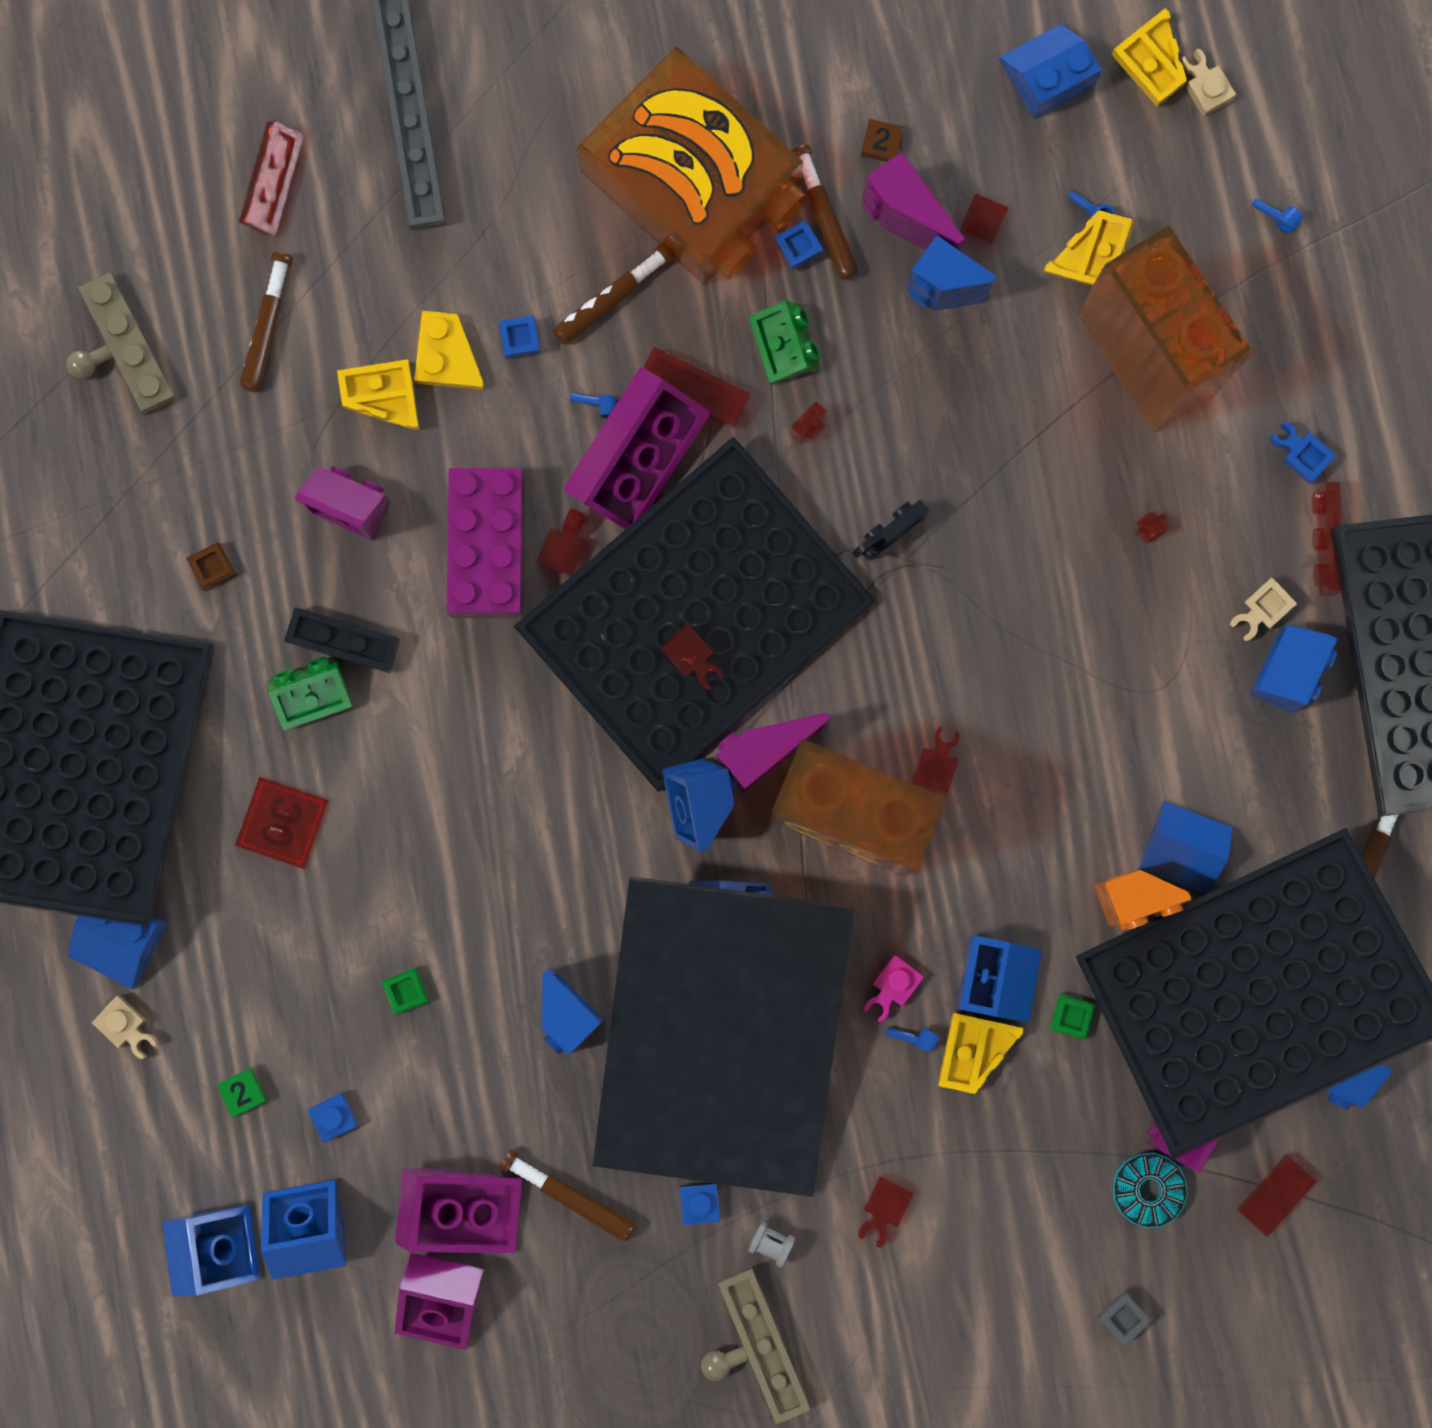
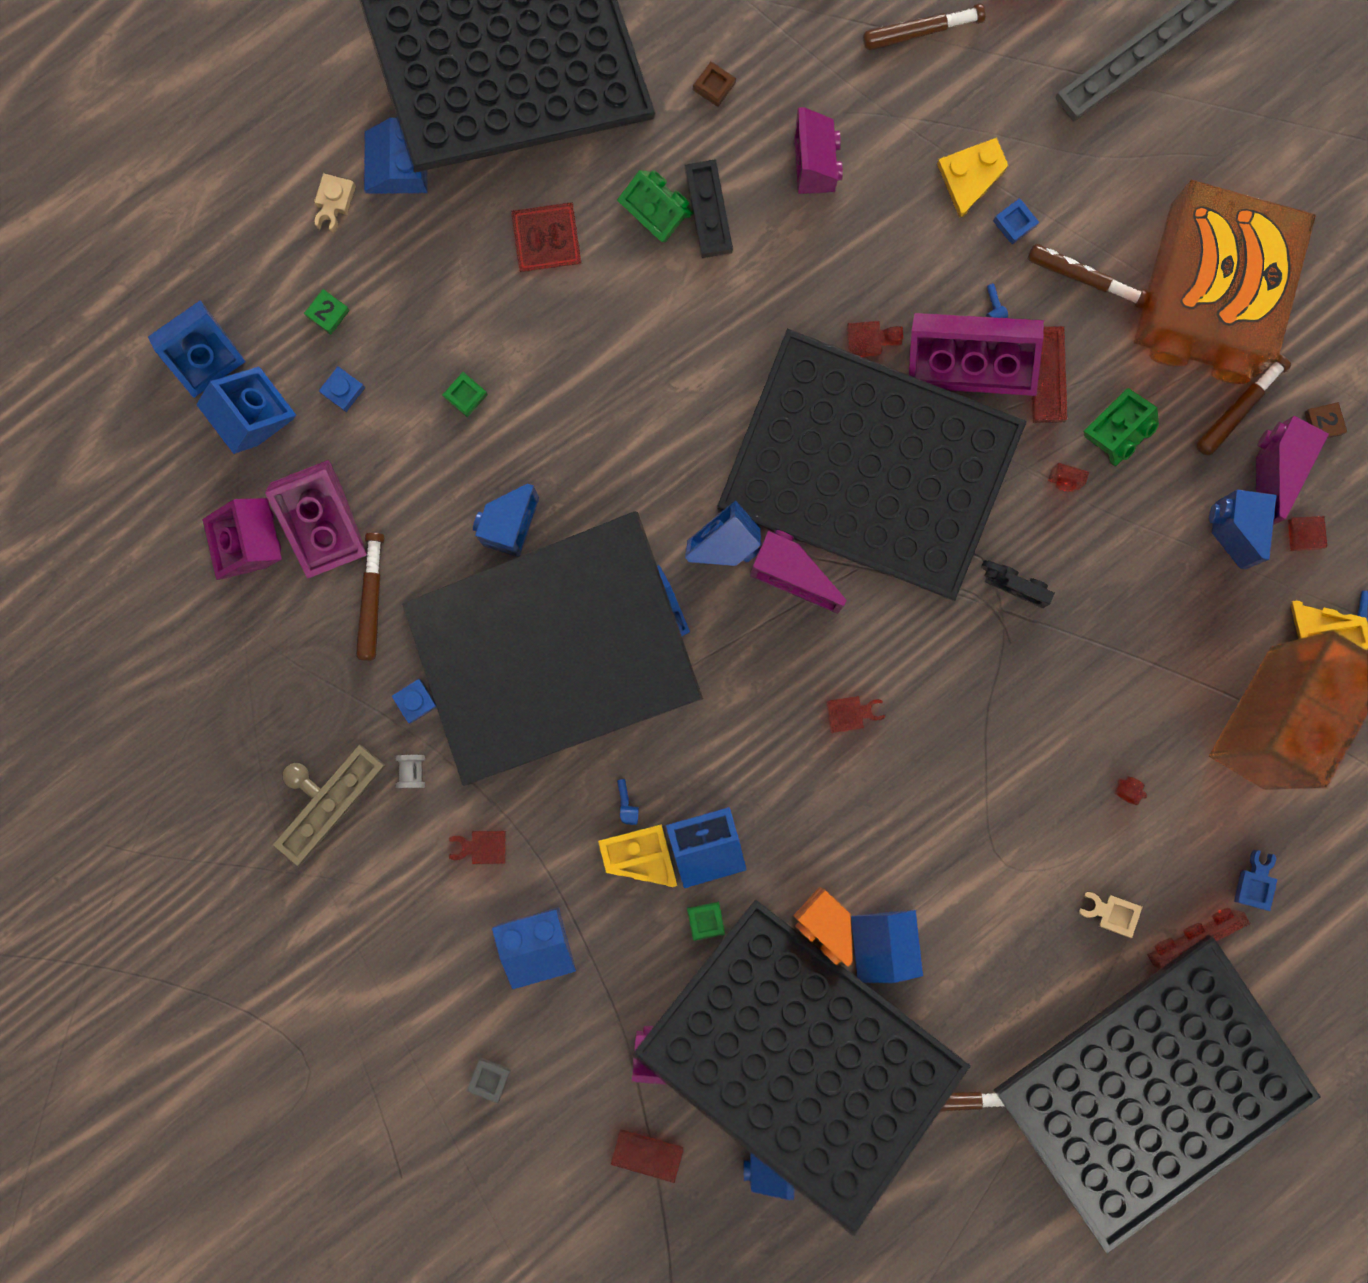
camera: 60 degrees right, 0 degrees up
(381, 392) = (916, 139): yellow wing -> none
(485, 543) = (841, 276): magenta brick -> none
(689, 654) = (836, 473): clear red plate -> none
(798, 245) = (1206, 398): blue plate -> none
(857, 809) = (781, 656): clear orange brick -> none
(895, 984) = (662, 767): dark pink plate -> none
(1013, 1205) = (534, 948): none -> blue slope
(1165, 1205) = (595, 1070): tile -> none
(1294, 667) = (1078, 960): blue slope -> none

